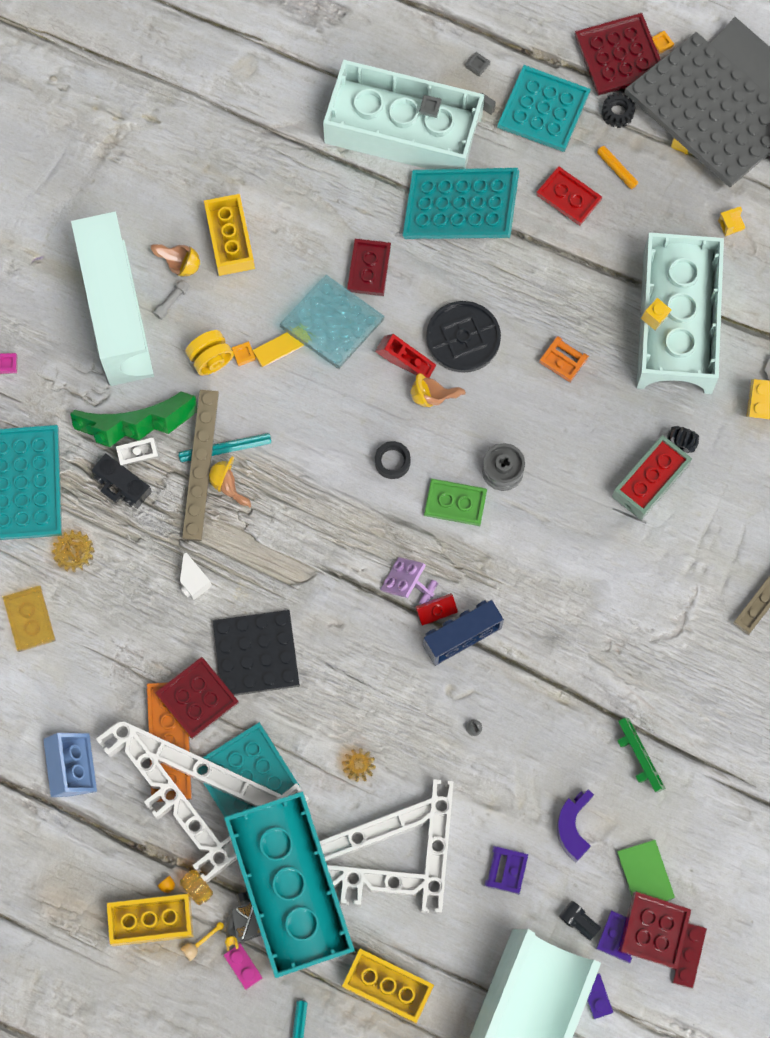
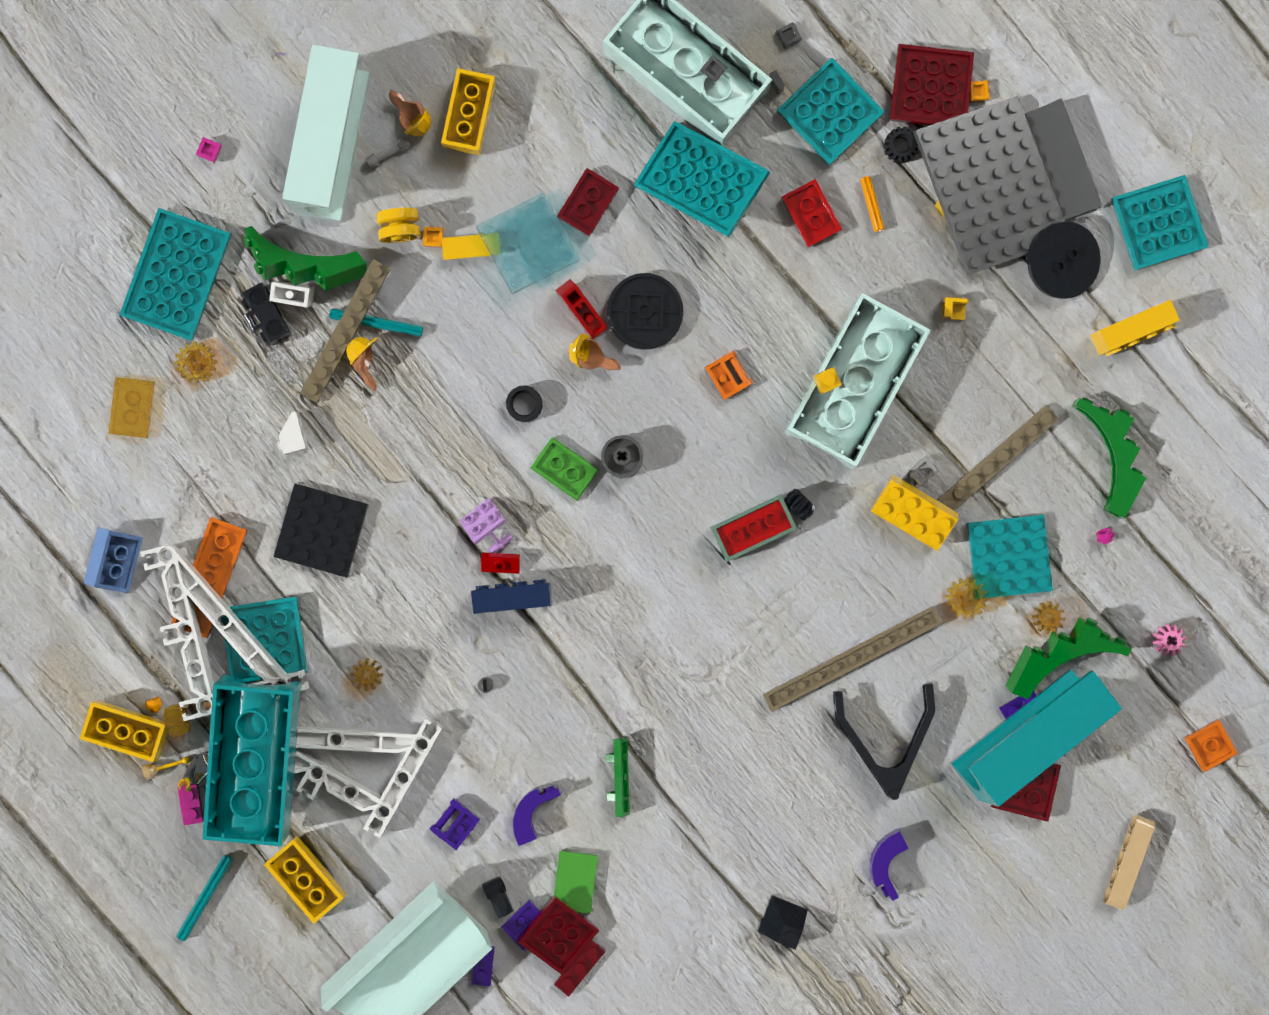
camera: 25 degrees right, 15 degrees up
(197, 698) = (248, 551): dark red plate -> none

